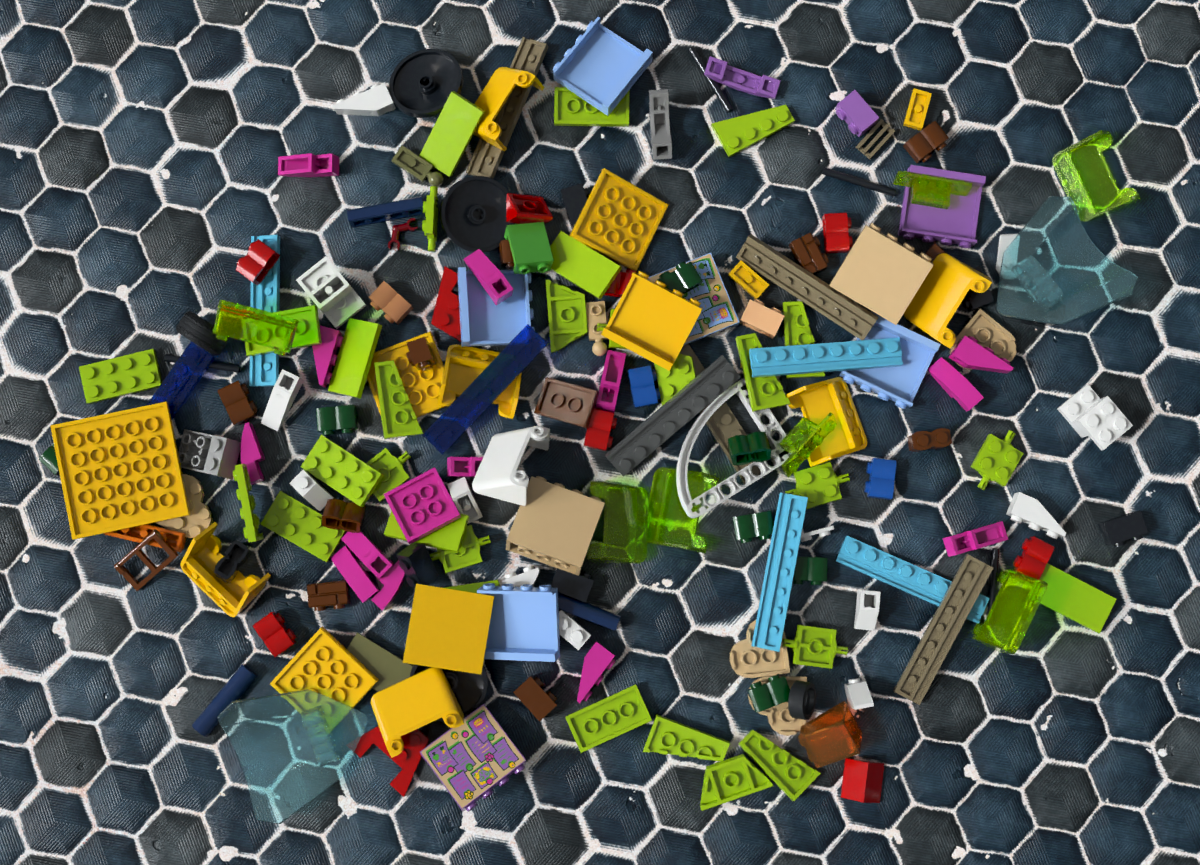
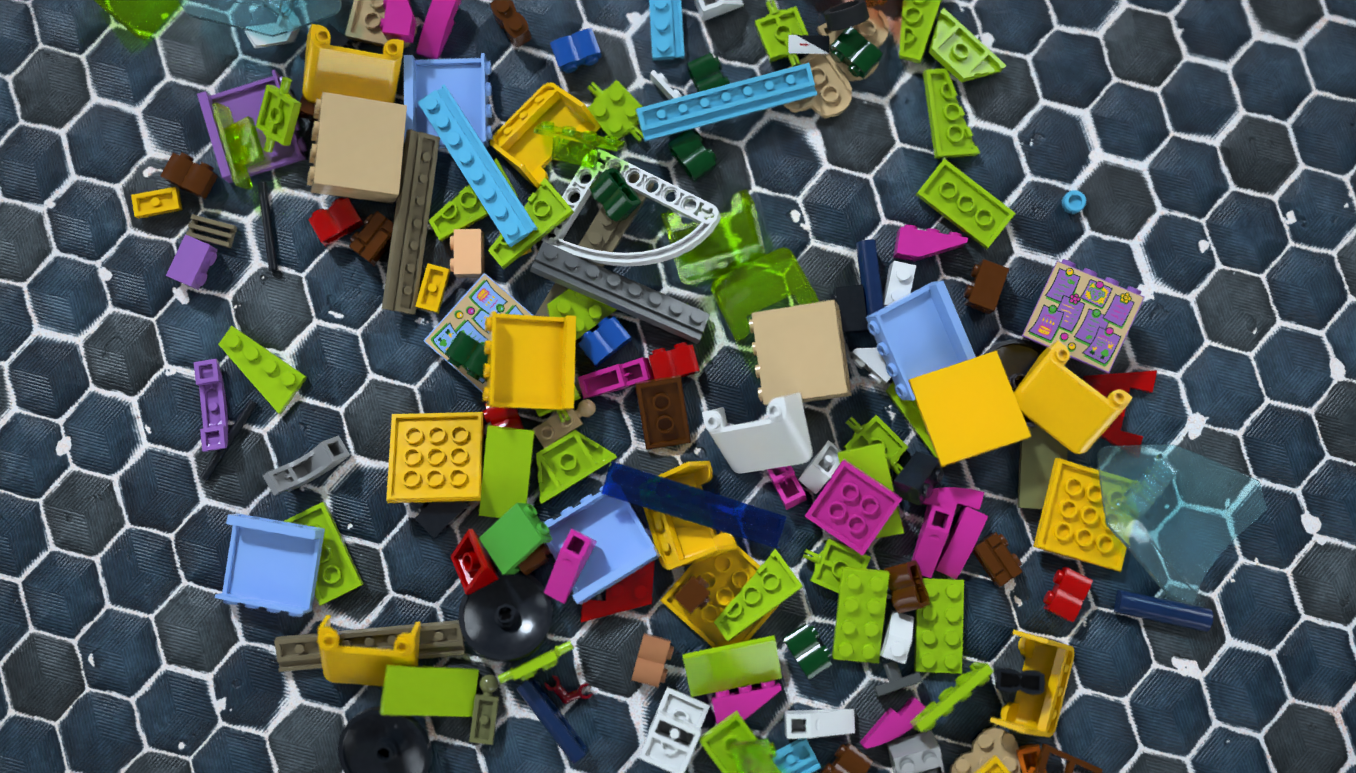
camera: 120 degrees left, 0 degrees up
(281, 472) = (895, 679): none -> dark grey tile
(567, 806) = (1073, 202): none -> medium azure tile
(795, 660) = (808, 44): none -> sticker
(938, 227) = (278, 115): none -> lime plate

